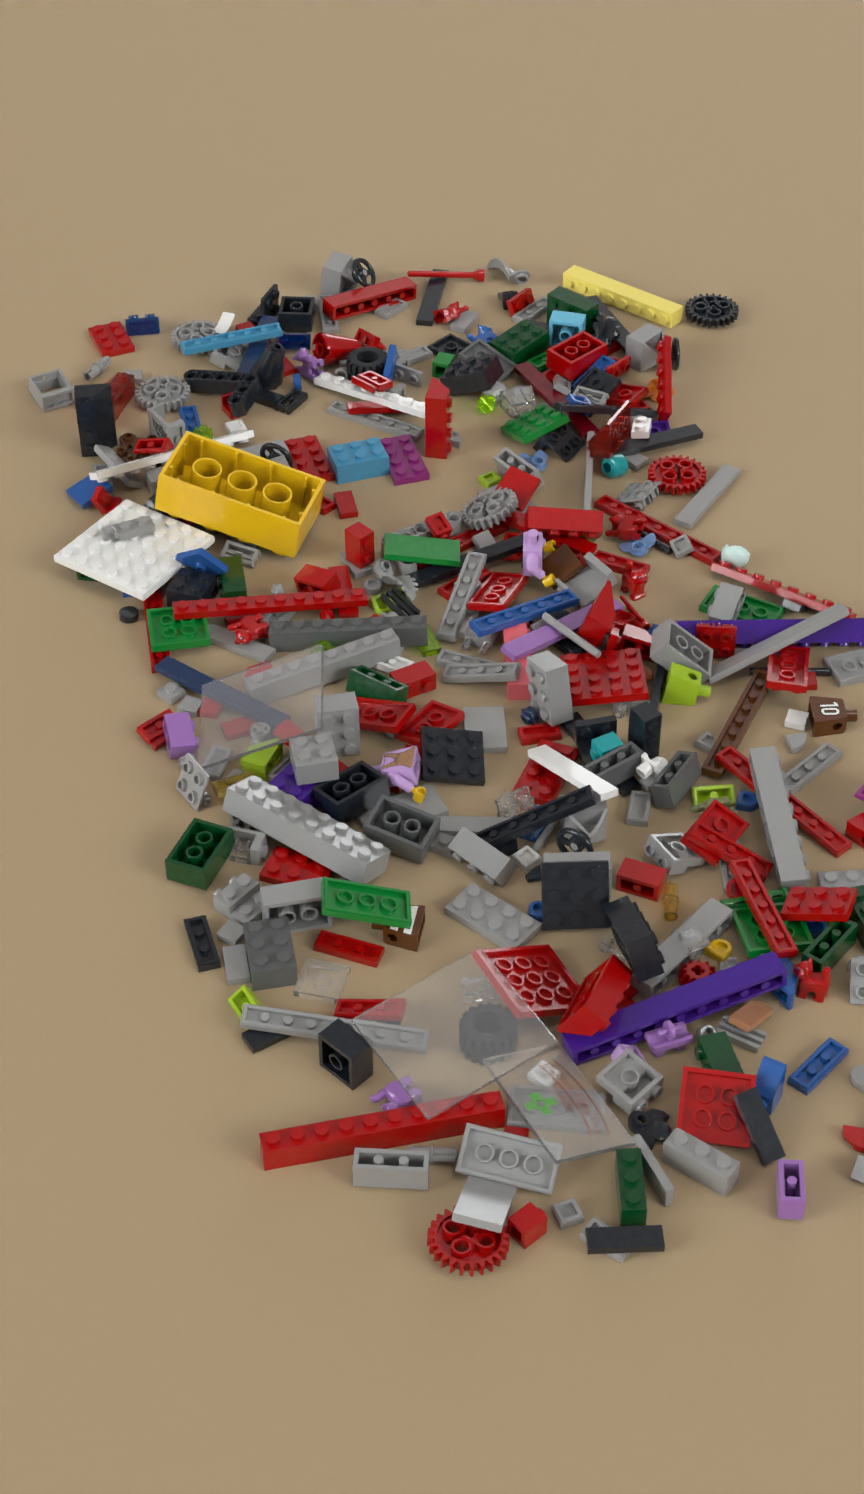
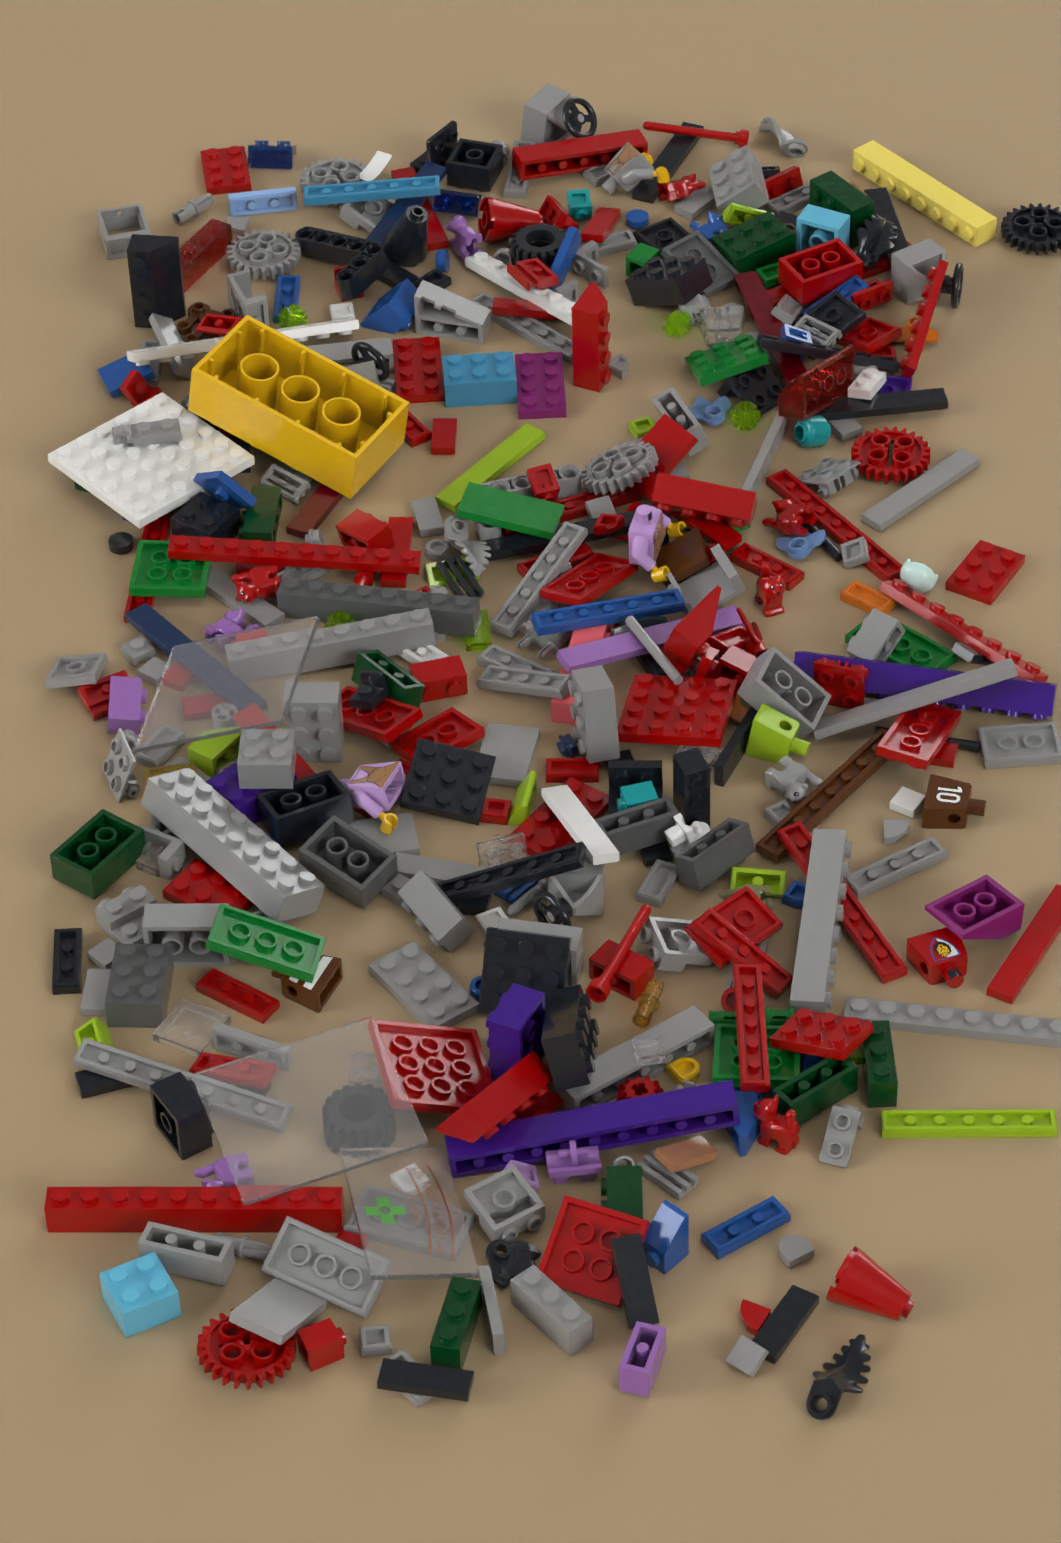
camera: 15 degrees right, 0 degrees up
(130, 714) = (76, 670): none -> light grey tile
(148, 357) = (262, 201): none -> light blue tile
(237, 663) = (231, 623): none -> medium lavender animal
(269, 571) = (314, 511): none -> dark red tile
(275, 419) = (392, 310): none -> blue slope
(319, 418) = (450, 315): none -> light grey wedge
(359, 545) = (431, 494): red brick -> none
(364, 1210) = (140, 1294): none -> medium azure brick
(370, 695) = (371, 692): none -> black bracket
(372, 986) = (238, 1041): none -> light grey tile
(382, 330) = (579, 204): none -> teal bracket
(394, 515) = (492, 464): none -> lime tile
(403, 342) = (600, 224): none -> red tile
(411, 302) = (630, 168): none -> light grey torso
(426, 337) = (637, 219): none -> blue tile
(493, 304) = (738, 180): none -> light grey brick
(494, 773) = (496, 811): none -> red tile
(497, 549) = (609, 522): none -> red tile
(502, 324) = (737, 214): none -> lime slope
(512, 761) = (523, 799): none -> lime slope
(561, 461) = (745, 415): none -> clear neon green gear
(589, 939) = (515, 1028): none -> dark purple brick
(636, 893) = (600, 987): none -> red piece
(702, 577) = (867, 598): none -> orange tile
(706, 716) = (791, 779): none -> light grey animal
(778, 547) = (985, 572): none -> red plate

